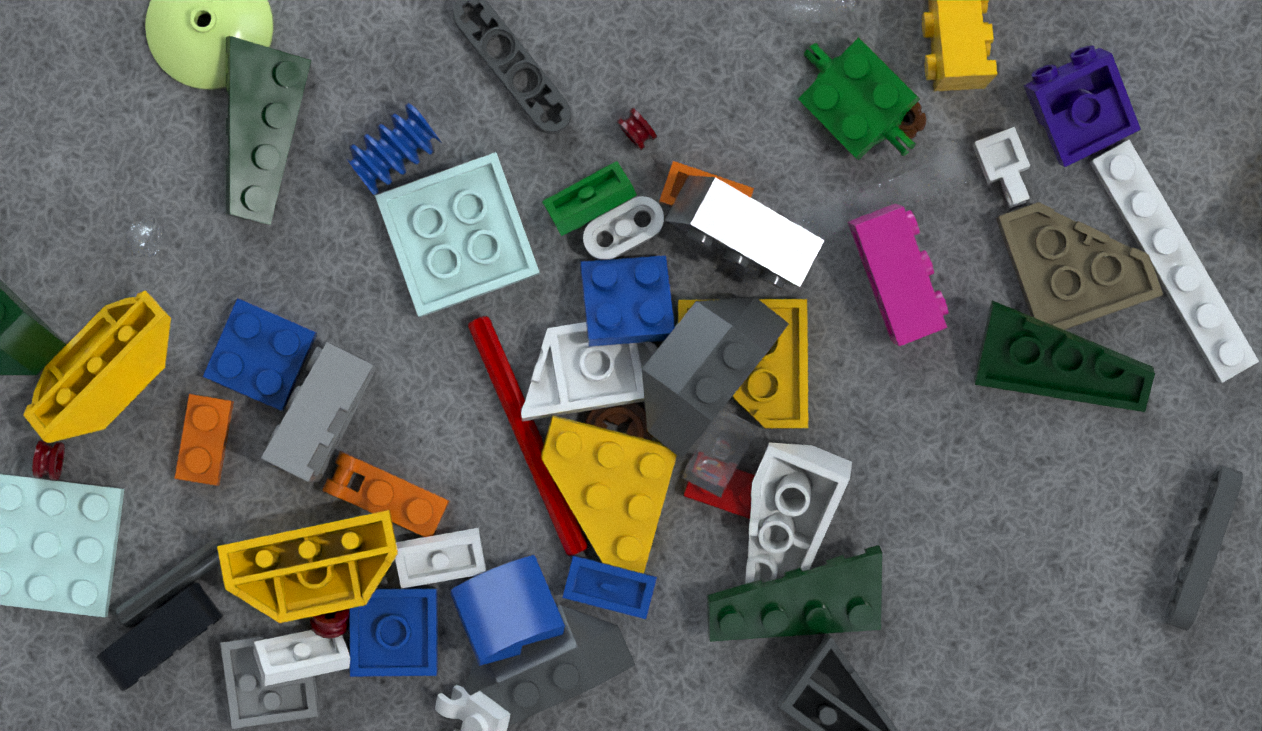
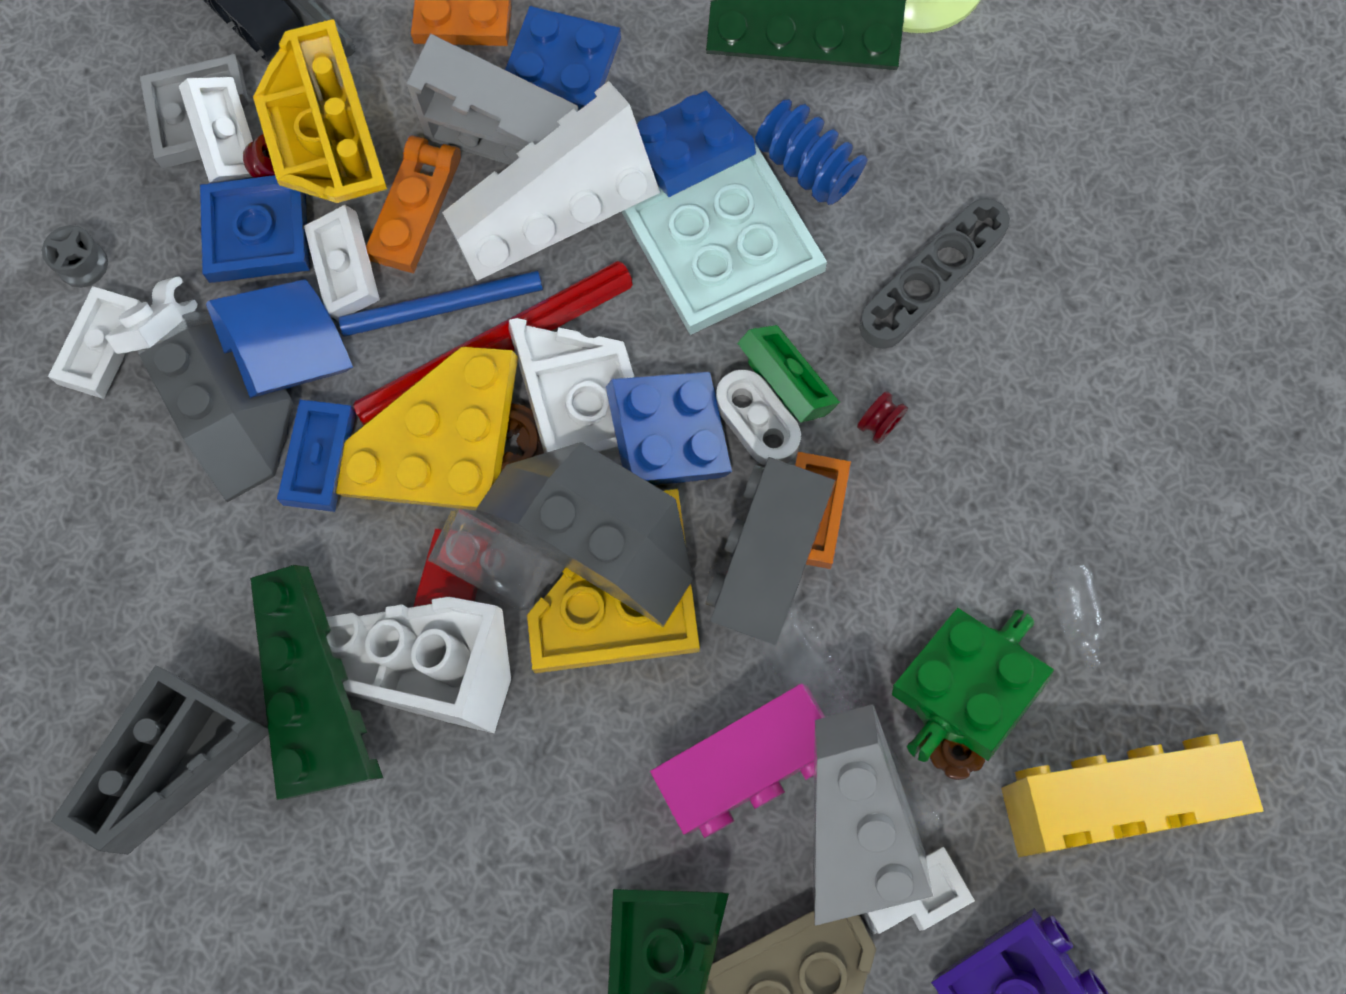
camera: 85 degrees right, 15 degrees down
(366, 252) = (693, 142): none -> blue plate
(406, 371) = (555, 188): none -> white wedge
(483, 478) = (440, 303): none -> blue bar
(958, 197) = (862, 824): none -> light grey wedge

